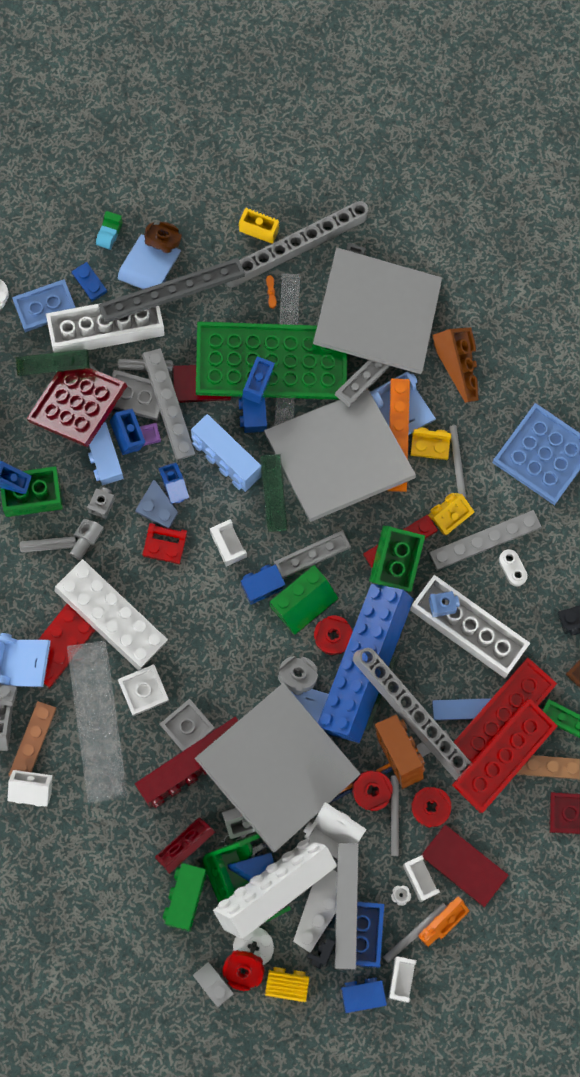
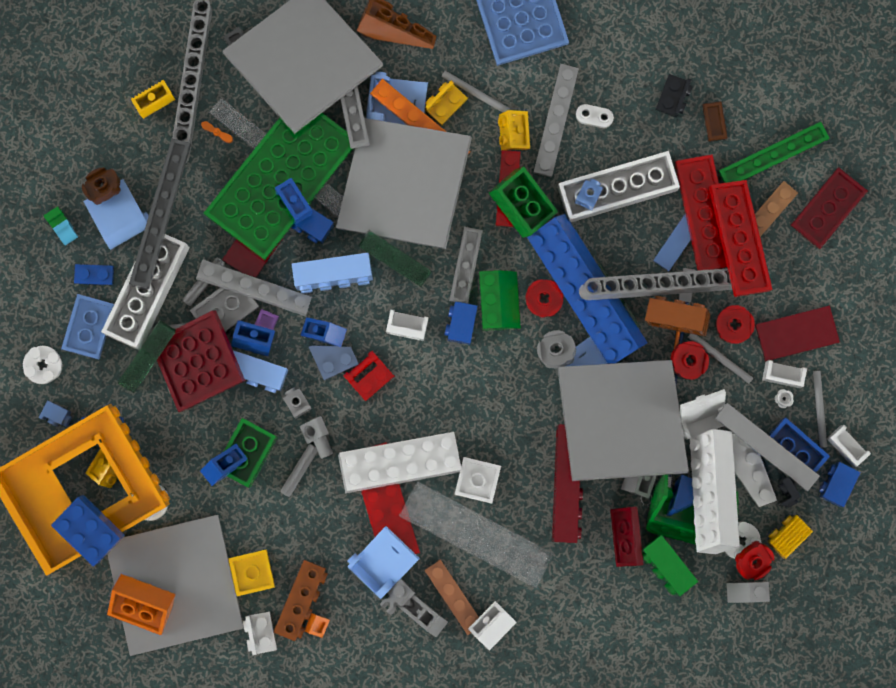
camera: 50 degrees left, 10 degrees up
(186, 725) = (532, 466): light grey plate -> none
(444, 921) = (829, 381): orange hinge -> none

